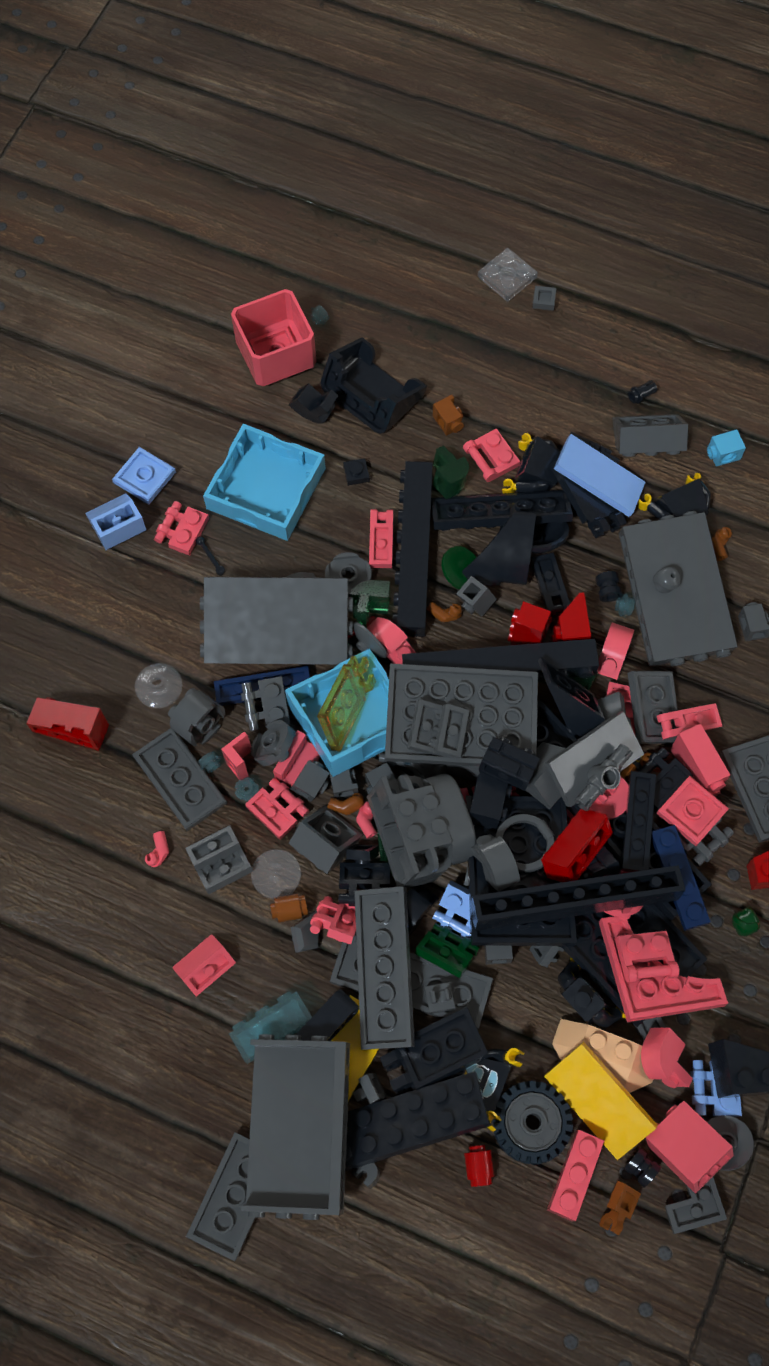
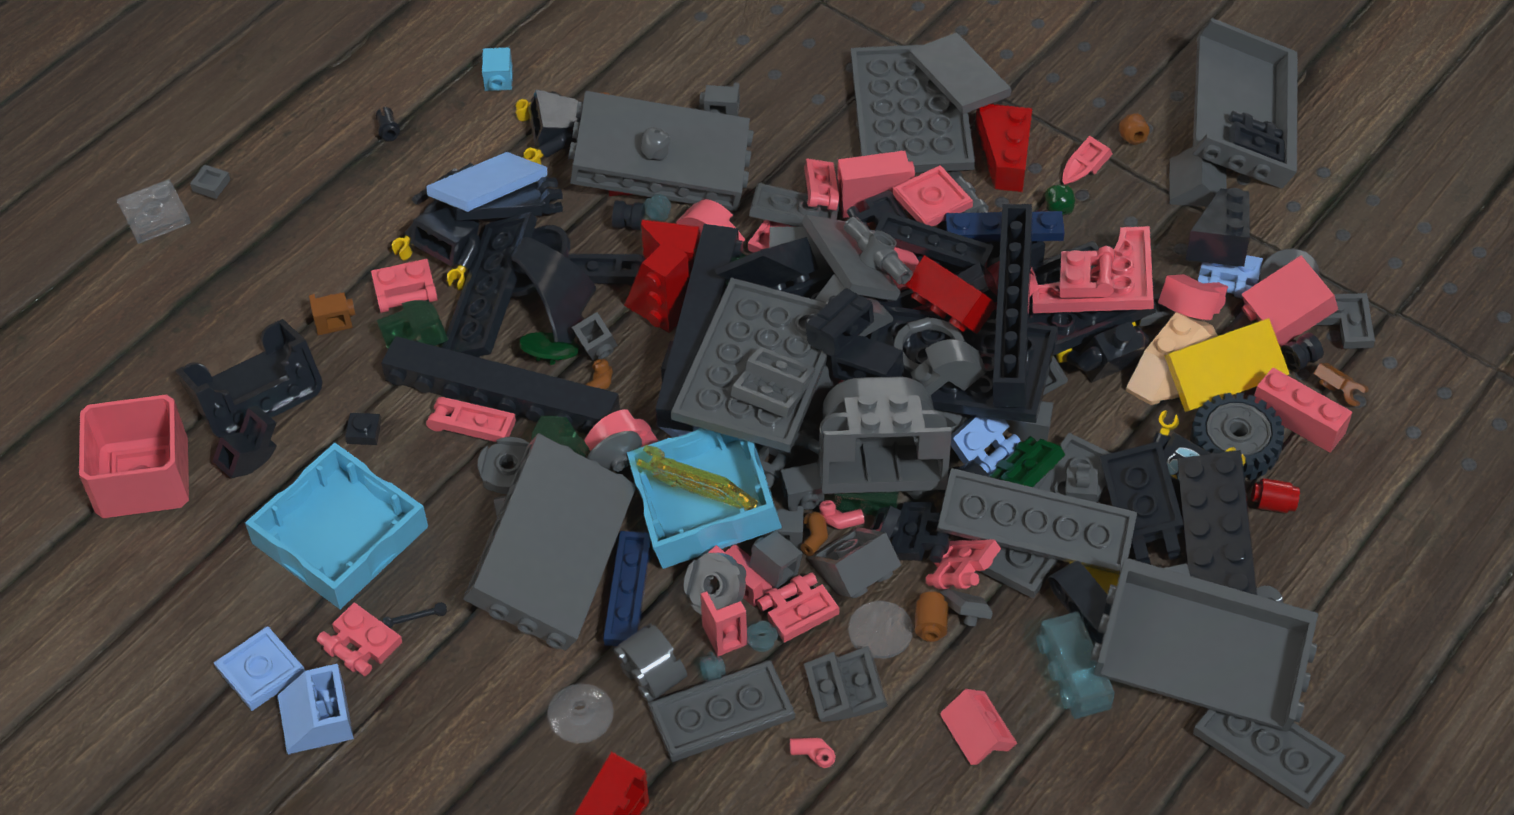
camera: 75 degrees left, 15 degrees down
(273, 702) = (658, 578): dark grey plate -> none
(650, 434) = (447, 129): dark grey slope -> none

